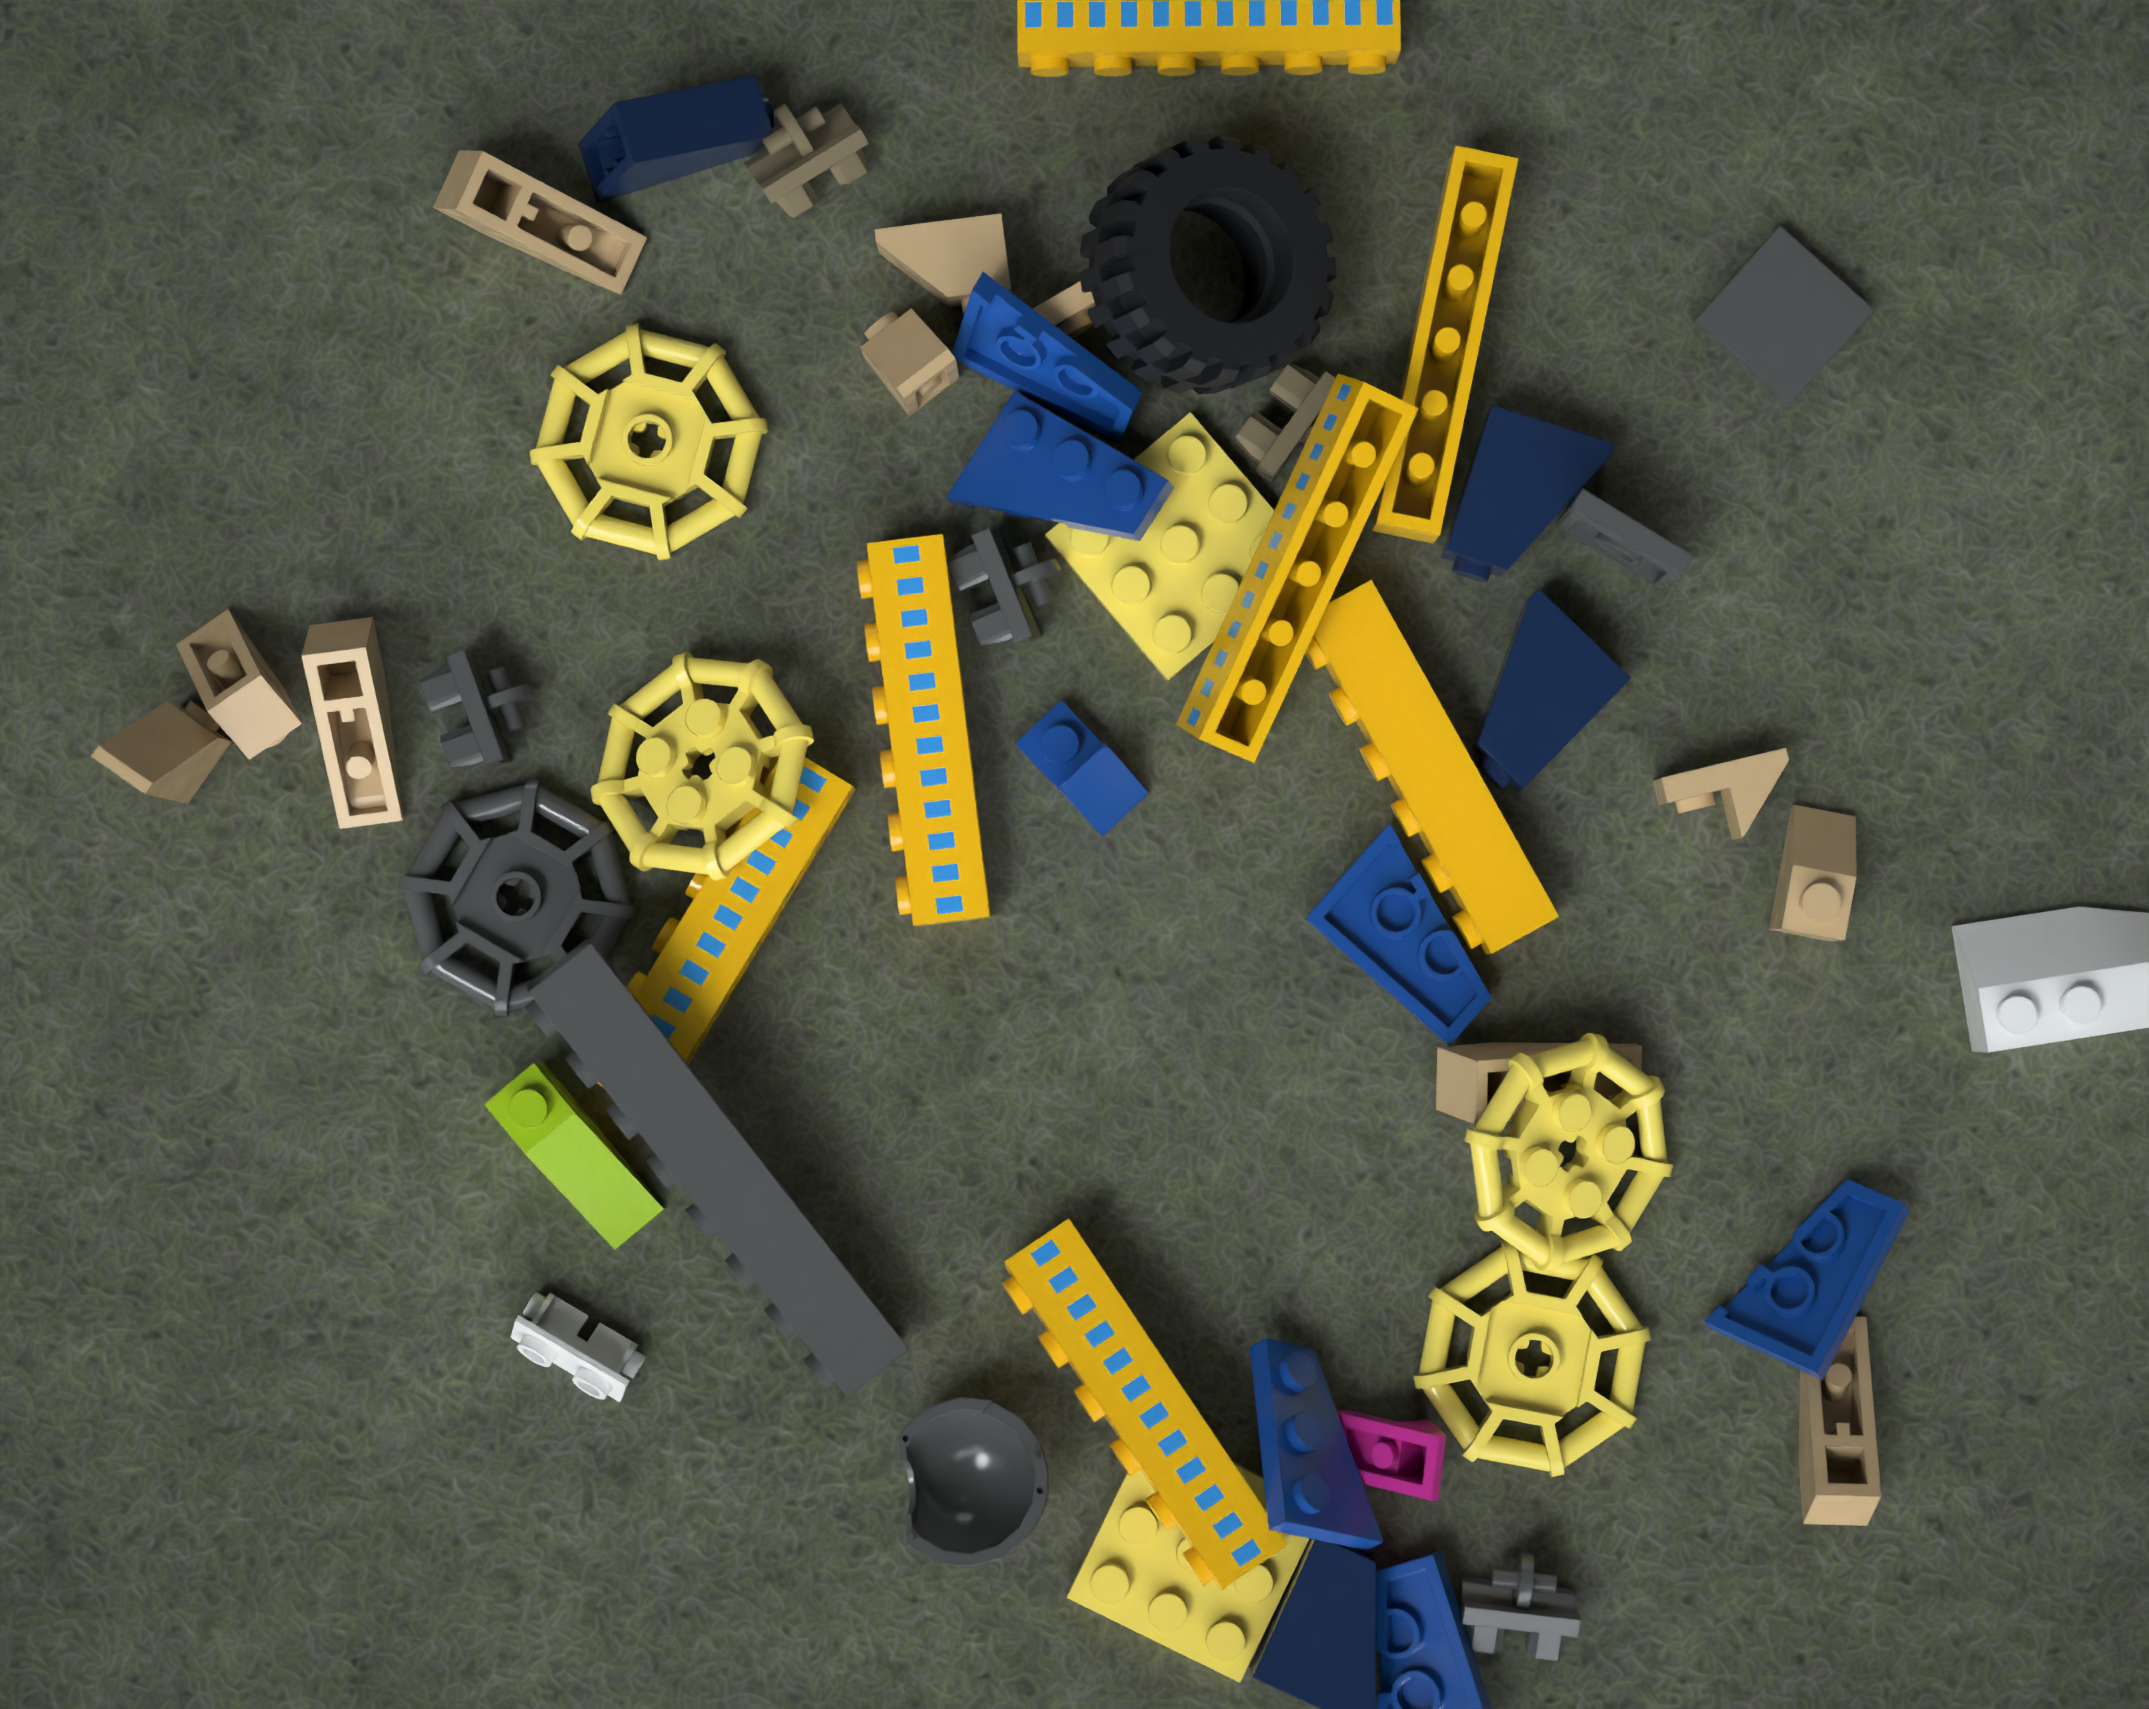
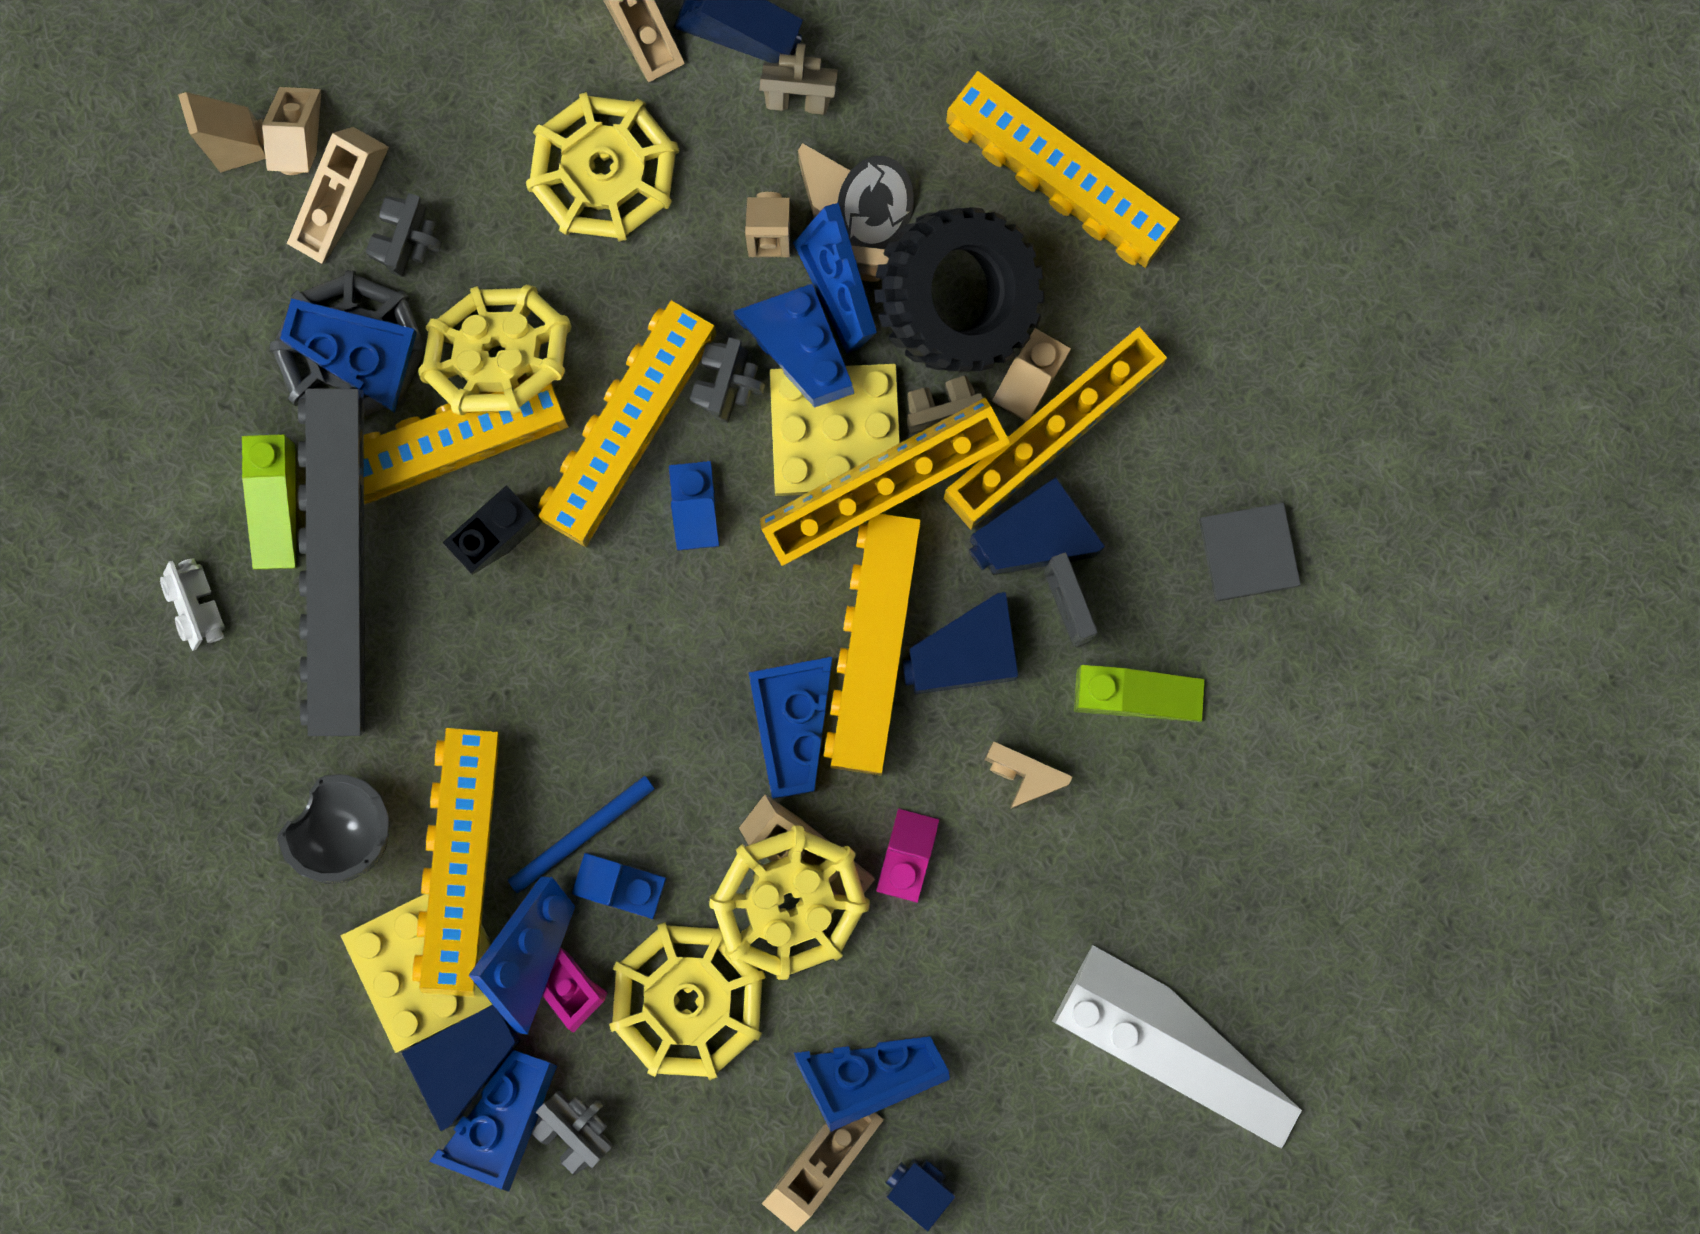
camera: 35 degrees right, 5 degrees down
(529, 896) = (353, 347): none -> blue wing
(870, 987) = (492, 531): none -> black slope
(1019, 233) = (876, 202): none -> sticker
(1254, 1260) = (581, 834): none -> blue bar
(1346, 1286) = (619, 886): none -> blue slope
(1364, 302) = (1031, 375): none -> tan slope
(1657, 987) = (907, 855): none -> dark pink slope
(1782, 589) = (1138, 693): none -> lime slope
(1816, 875) = (1038, 859): tan slope -> none
(1975, 1368) = (919, 1192): none -> dark blue brick

